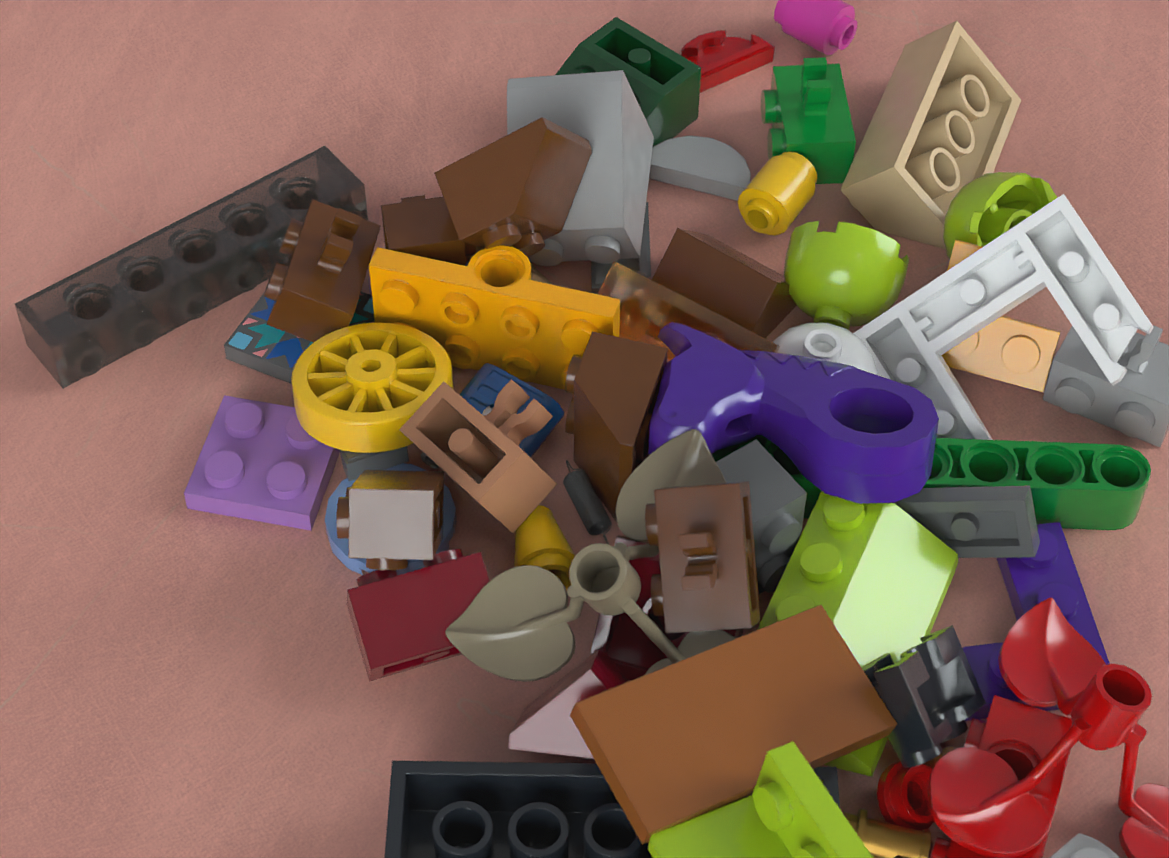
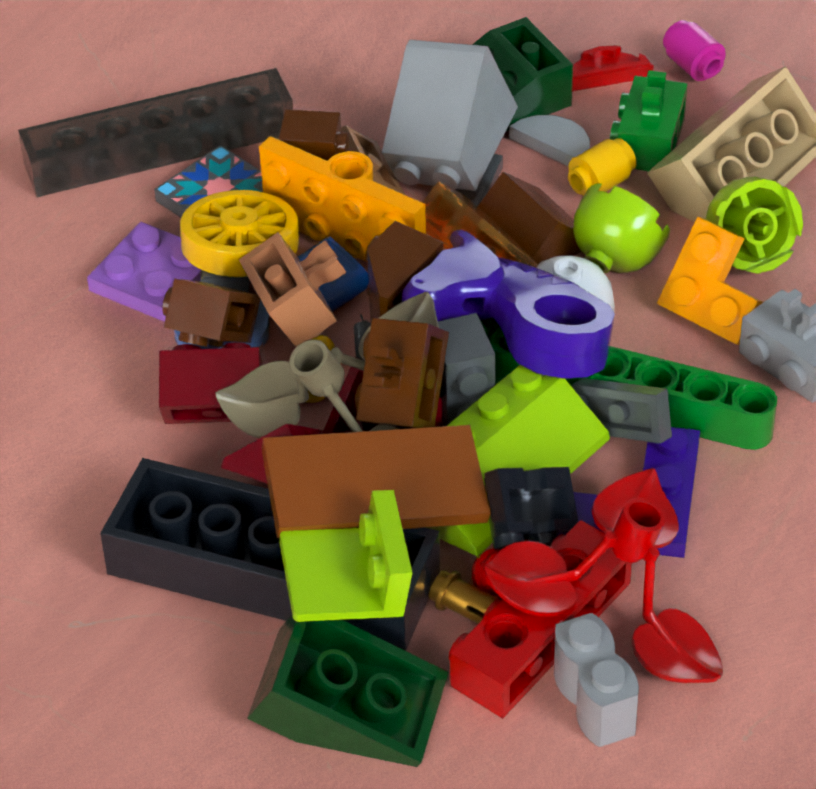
camera: 20 degrees right, 5 degrees down
(323, 271) = (231, 151): reddish brown brick -> none
(516, 187) = (384, 114): reddish brown slope -> none
(1039, 252) = (750, 233): white wedge -> none

